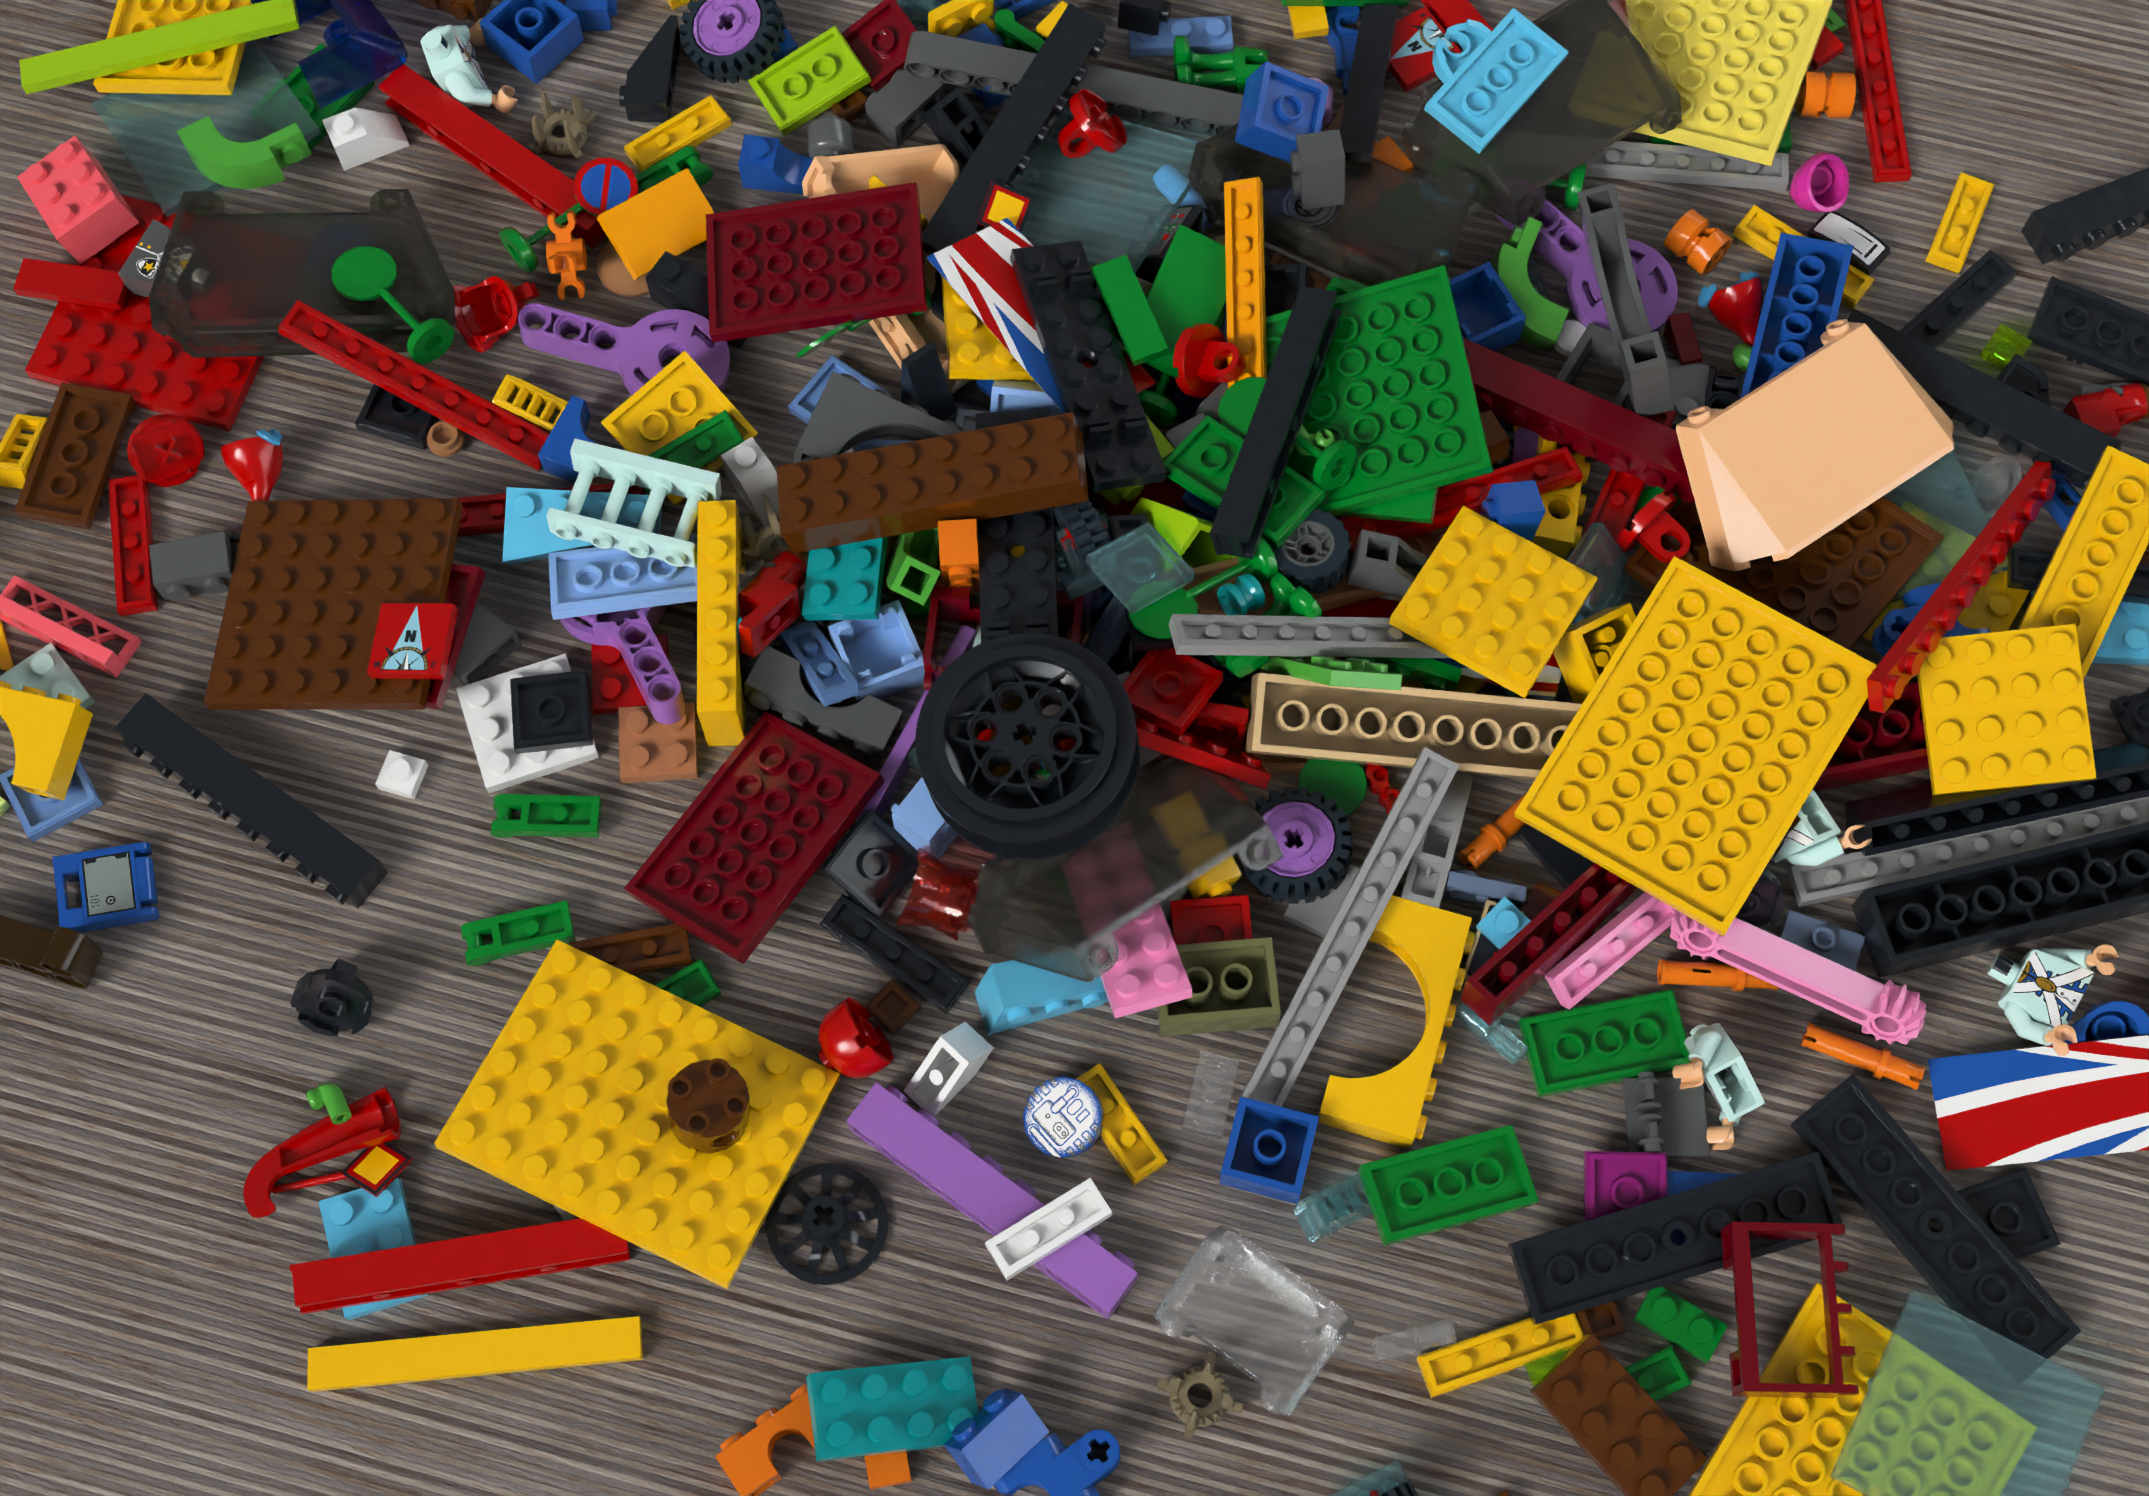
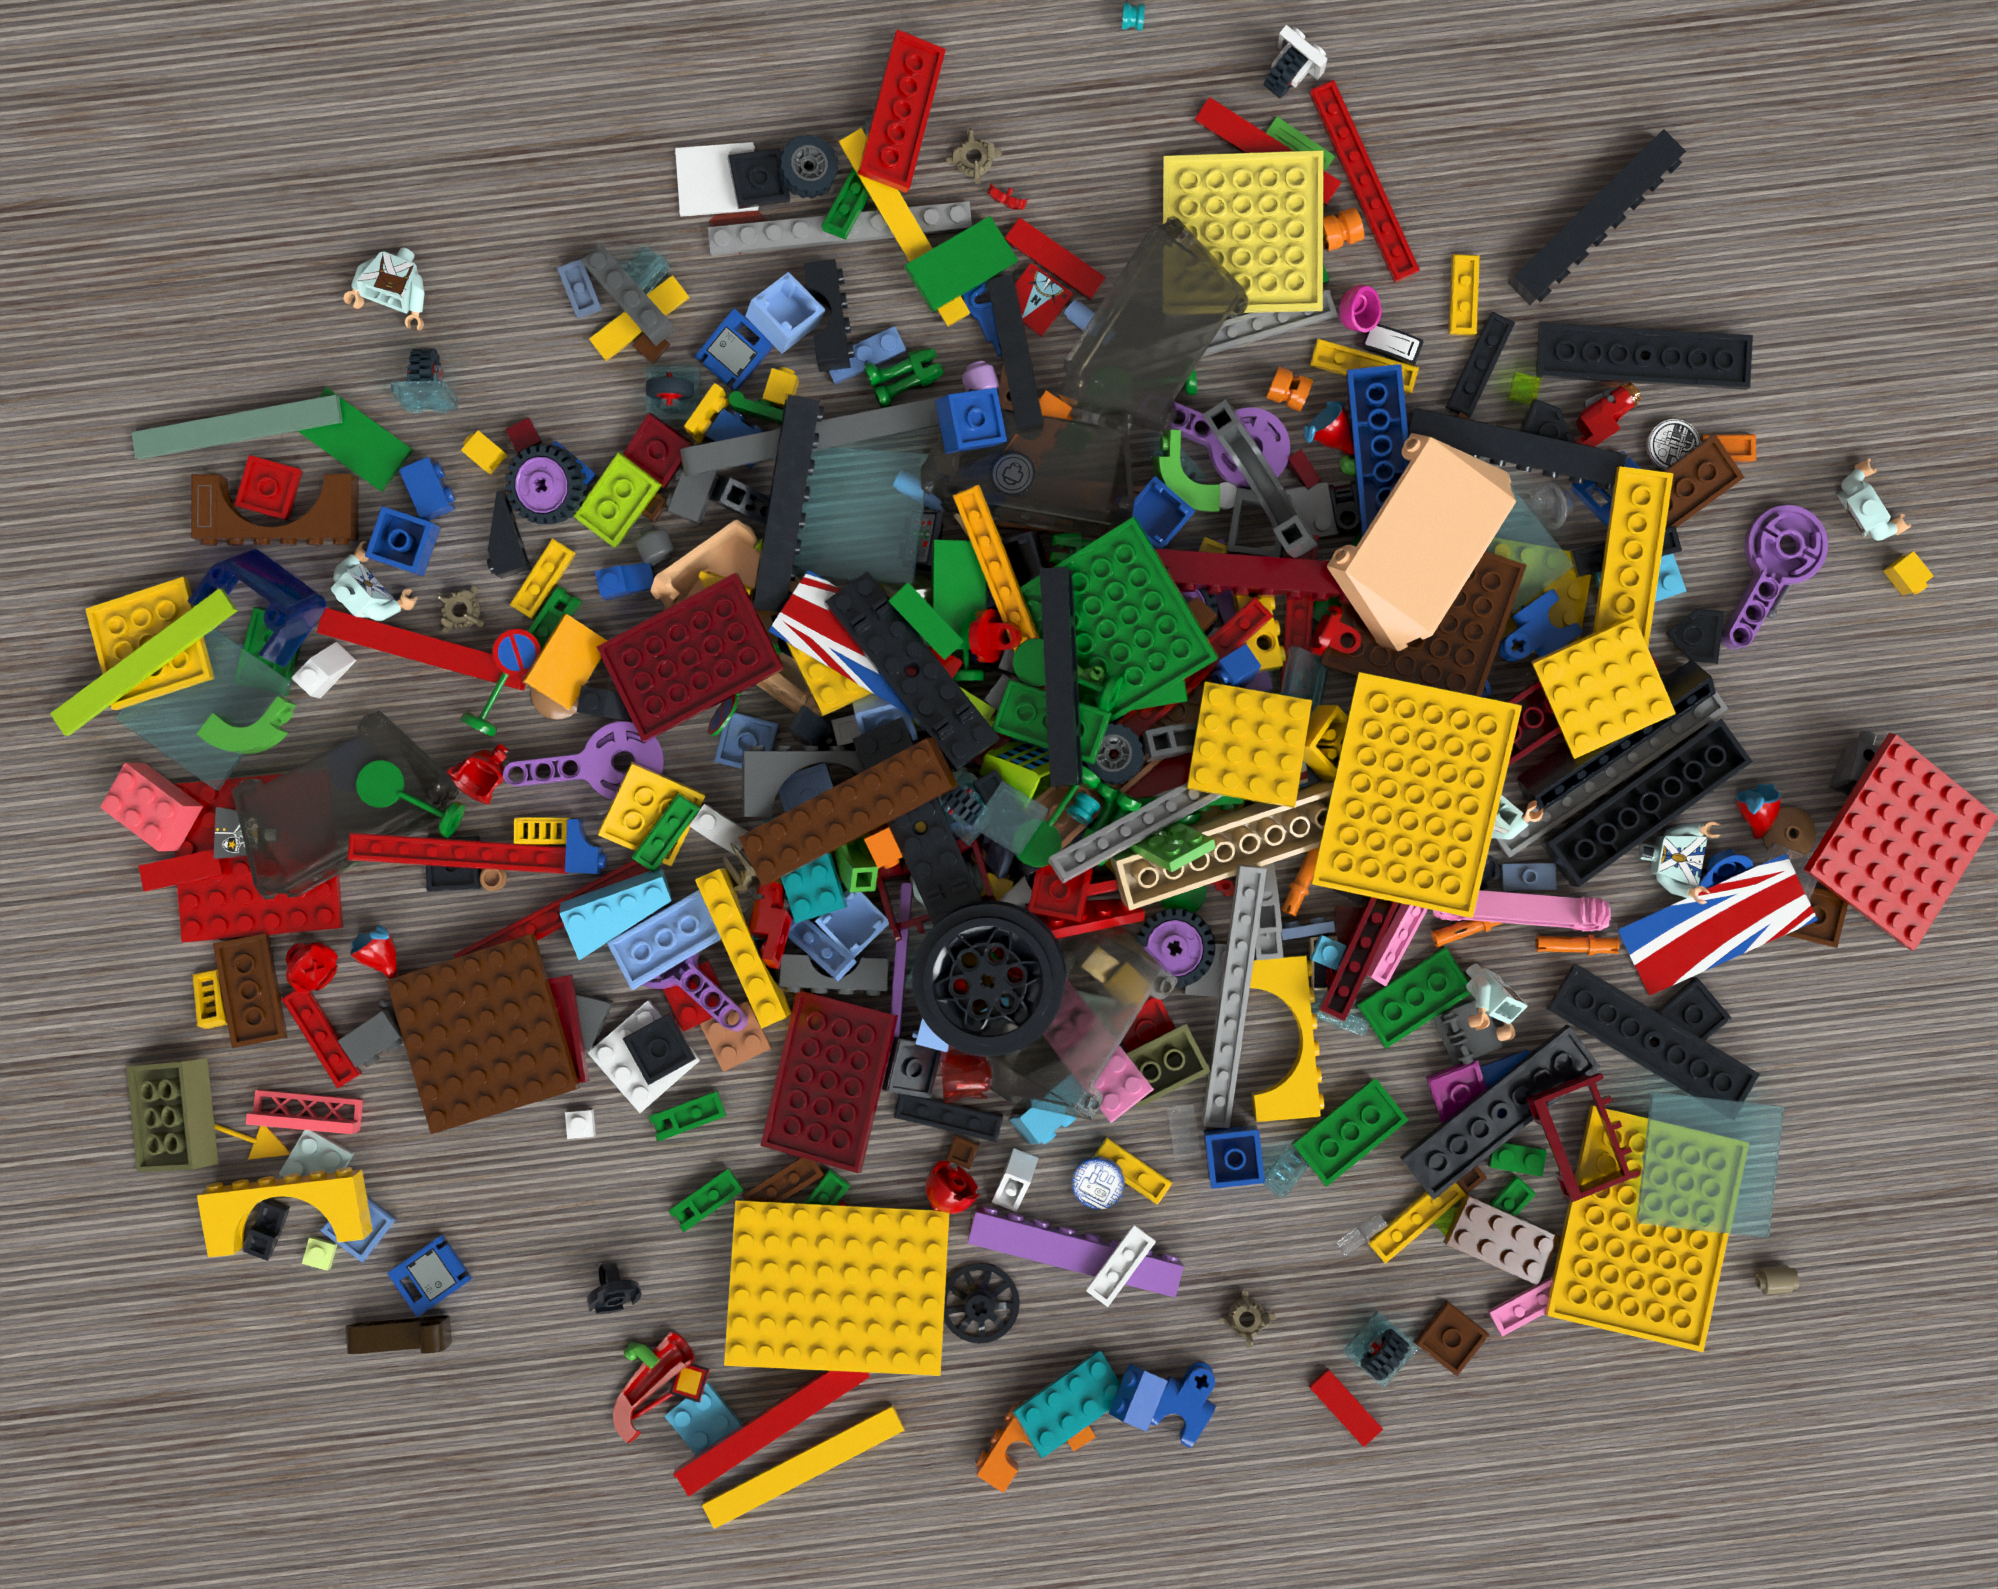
camera: 20 degrees left, 20 degrees up
(251, 801) = (492, 1183): black brick -> none
(412, 641) = (553, 1052): red tile -> none
(566, 255) = (513, 714): orange pin -> none
(643, 471) = (635, 872): light aqua fence -> none
(708, 1105) = (882, 1277): reddish brown brick -> none
(1005, 203) = (802, 559): piece -> none
(1092, 125) = (838, 470): red tile -> none
(1255, 1317) = (1265, 1258): clear windscreen -> none
(1318, 169) = (1012, 455): dark grey brick -> none
(1490, 76) = (1108, 337): medium azure plate -> none
(1959, 587) = (1550, 617): red plate -> none

